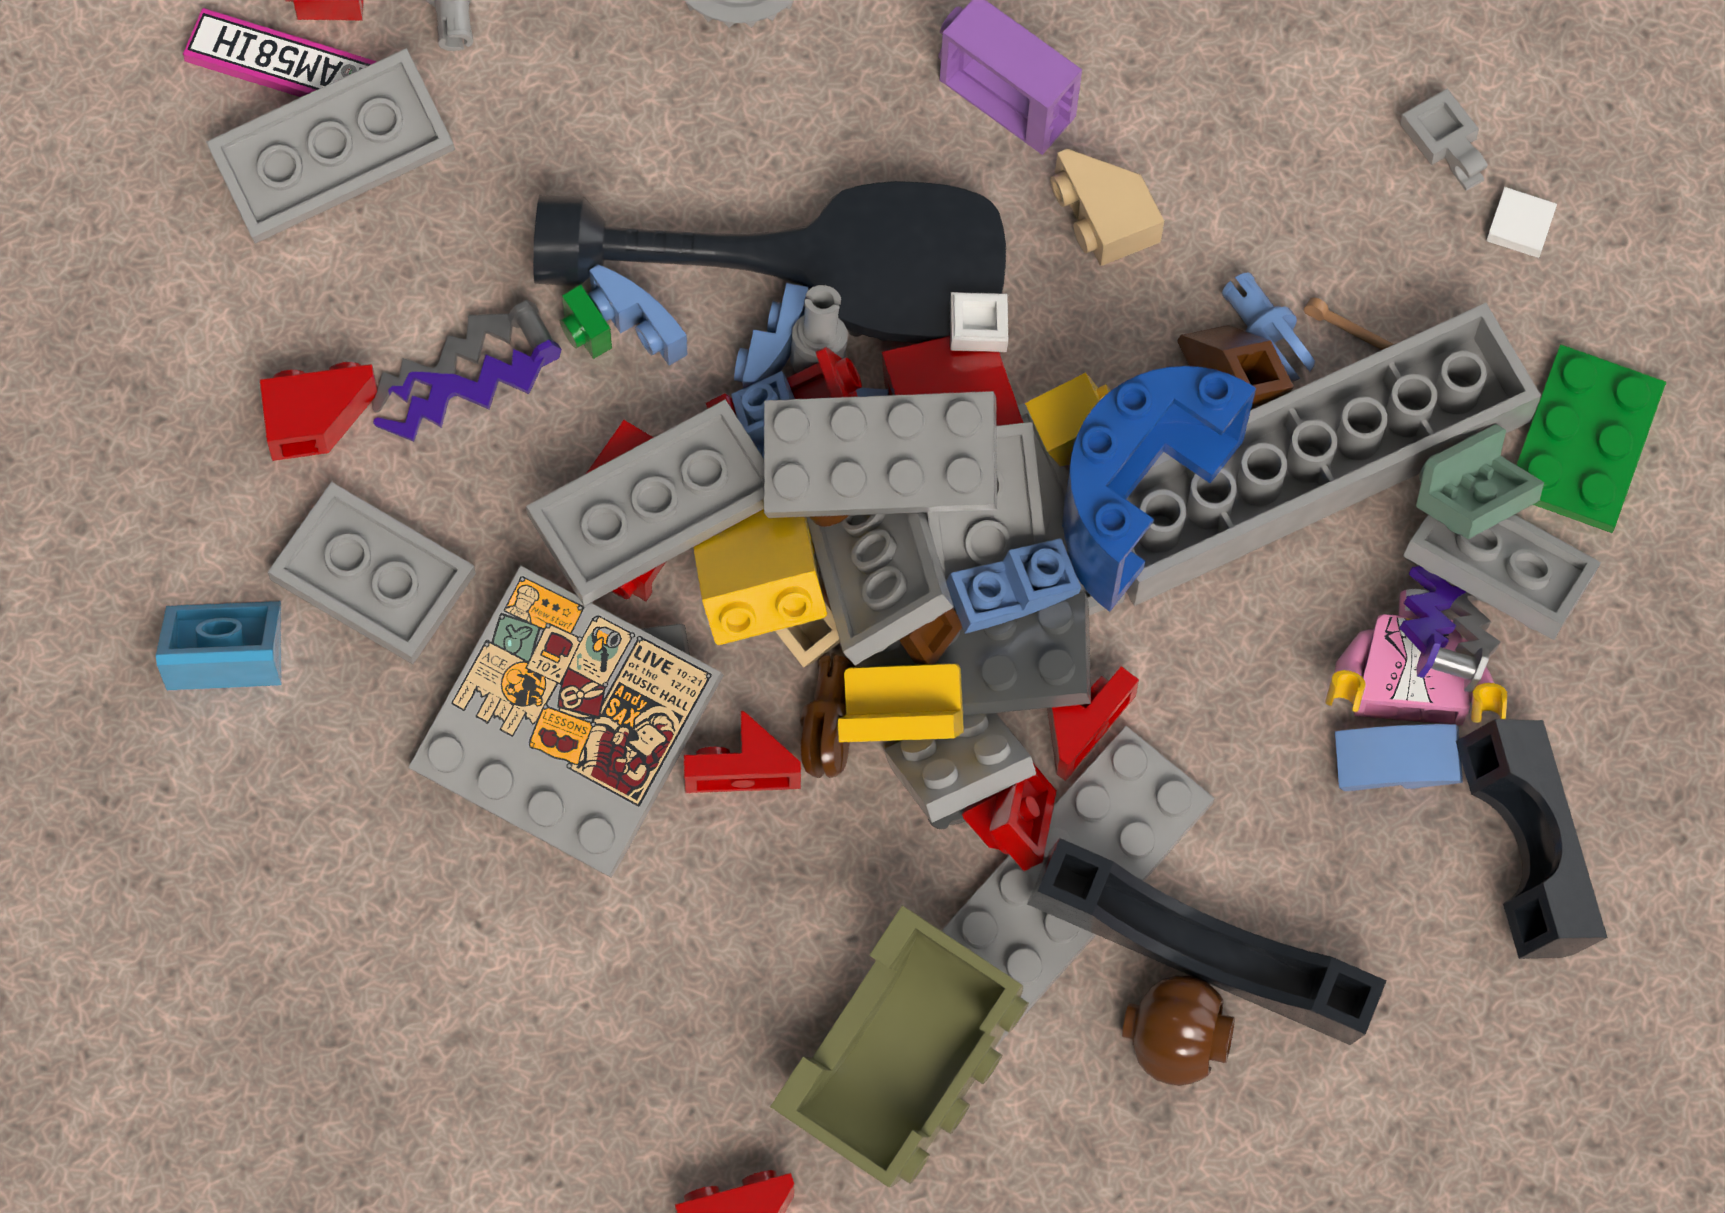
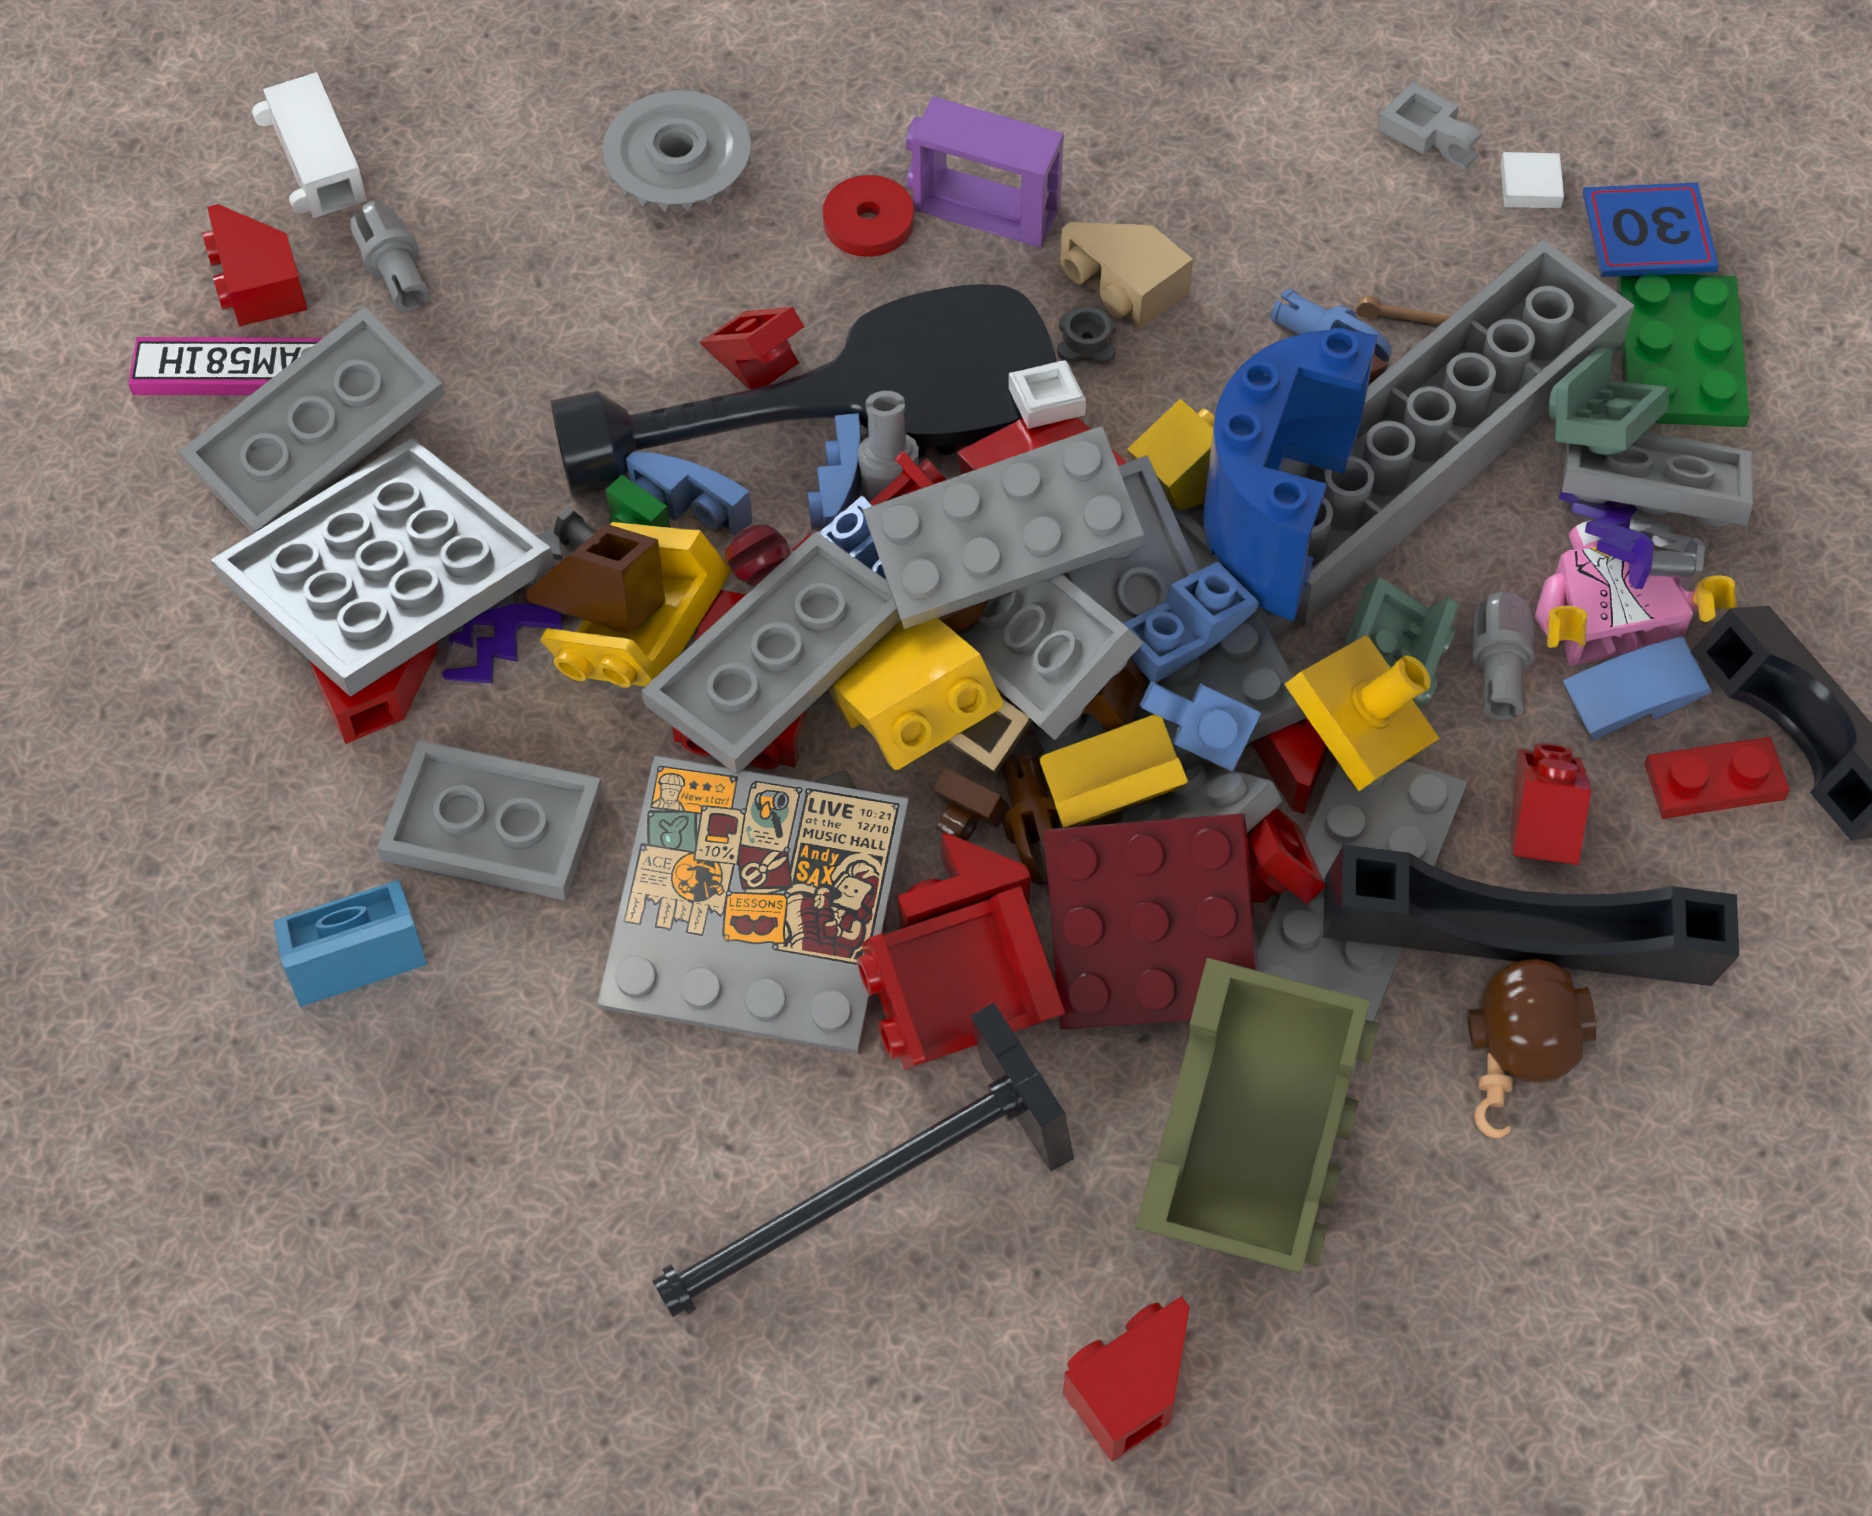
camera: 15 degrees left, 10 degrees down
(349, 308) = (382, 565): none -> light grey plate
(530, 387) = (606, 580): none -> reddish brown slope
(558, 420) = (691, 581): none -> yellow panel
(671, 401) = (756, 553): none -> dark red arm
(709, 843) = (954, 967): none -> red panel
(716, 960) = (1014, 1093): none -> black tile
(744, 182) = (756, 345): none -> red slope
(776, 687) = (967, 805): none -> reddish brown tile
(883, 839) = (1143, 913): none -> dark red plate
(891, 98) = (868, 236): none -> red piece
(996, 687) = (1209, 724): none -> medium blue plate
(1048, 247) = (1087, 322): none -> dark grey plate
(1129, 1073) = (1495, 1084): none -> light nougat hand
(1138, 713) = (1365, 709): none -> yellow tile
(1198, 655) = (1404, 627): none -> sand green bracket
(1273, 841) = (1549, 804): none -> red slope
(1295, 686) = (1503, 650): none -> light grey arm
(1435, 860) = (1716, 777): none -> red plate
(1603, 311) = (1650, 229): none -> blue piece

